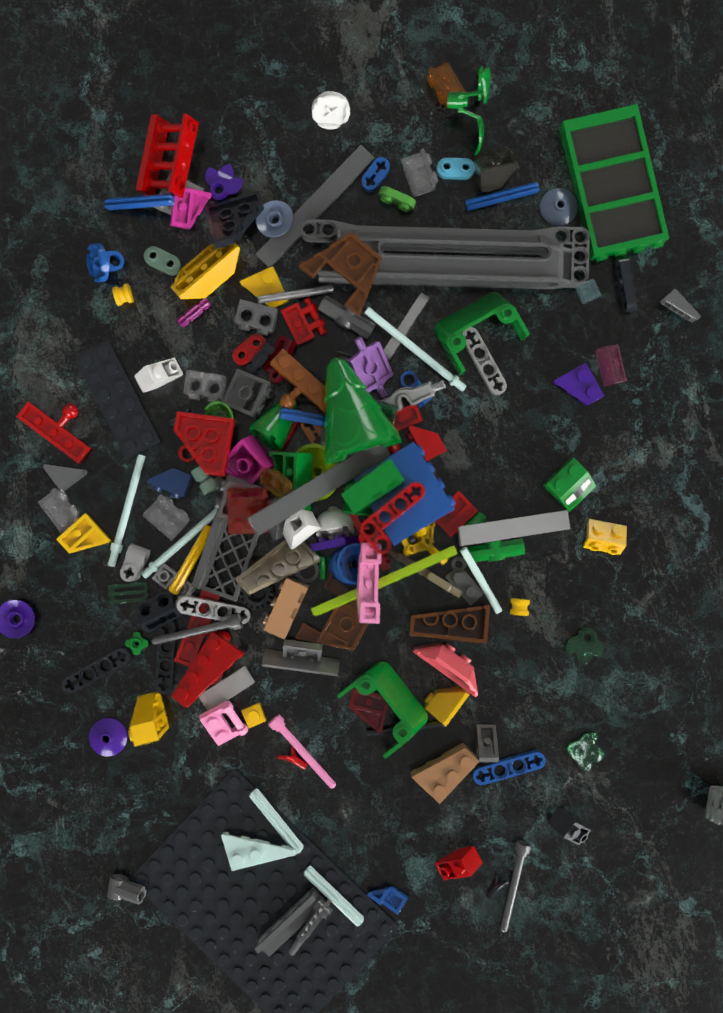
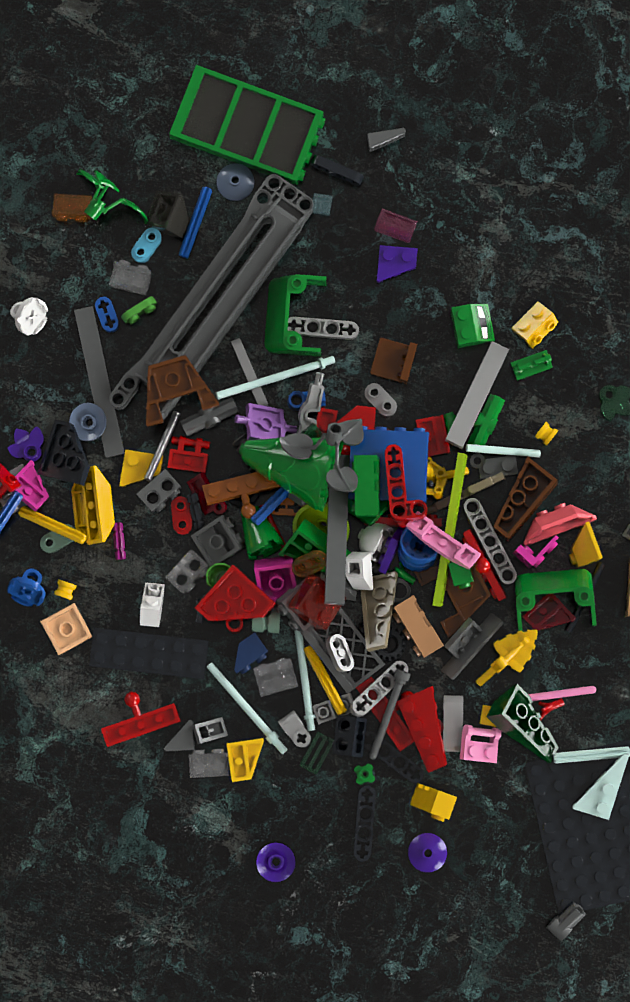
camera: 50 degrees left, 5 degrees down
(85, 491) = (210, 730): none -> dark grey slope
(92, 318) = (66, 629): none -> light nougat tile
(168, 247) = (52, 525): none -> yellow axle
(220, 557) = (340, 653): none -> light grey plate
(264, 744) = (518, 719): none -> dark green wedge
(317, 702) = (513, 651): none -> yellow bar
(350, 616) = (461, 576): none -> green brick
(372, 630) = (483, 566): none -> red plate
(396, 629) = (489, 532): none -> light grey beam
(405, 665) = (526, 556): none -> dark pink bracket
(408, 441) = (349, 432): none -> dark grey plant
(455, 449) = (380, 399): none -> light grey plate
(496, 439) = (393, 360): none -> reddish brown bracket
(569, 556) = (532, 365): none -> green hinge

